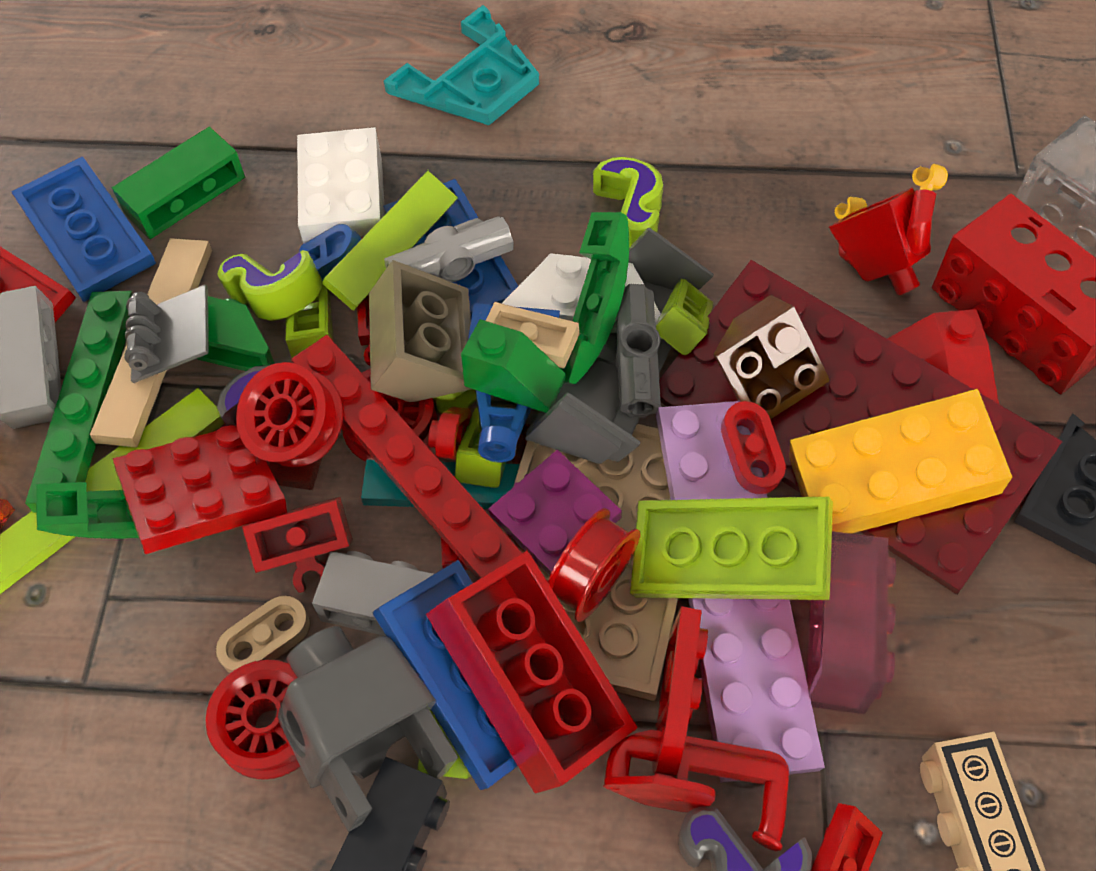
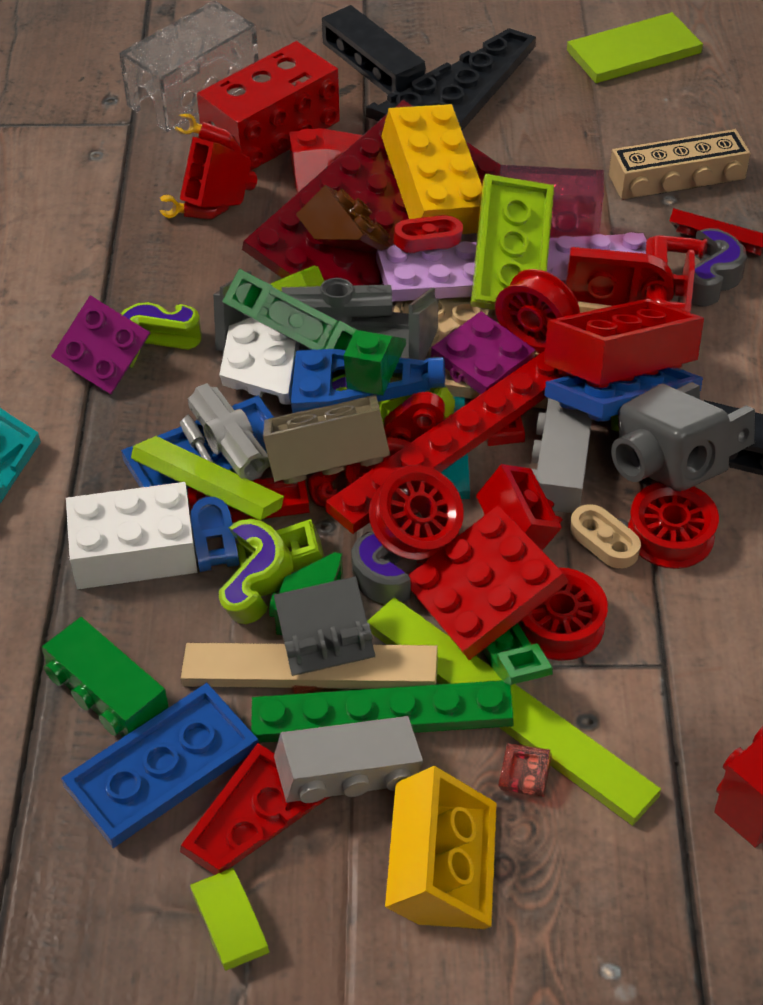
camera: 95 degrees left, 10 degrees down
(146, 601) = (578, 626): none -> red wheel
(550, 334) = (328, 357): tan plate -> none
(600, 146) = (100, 344): none -> magenta hinge

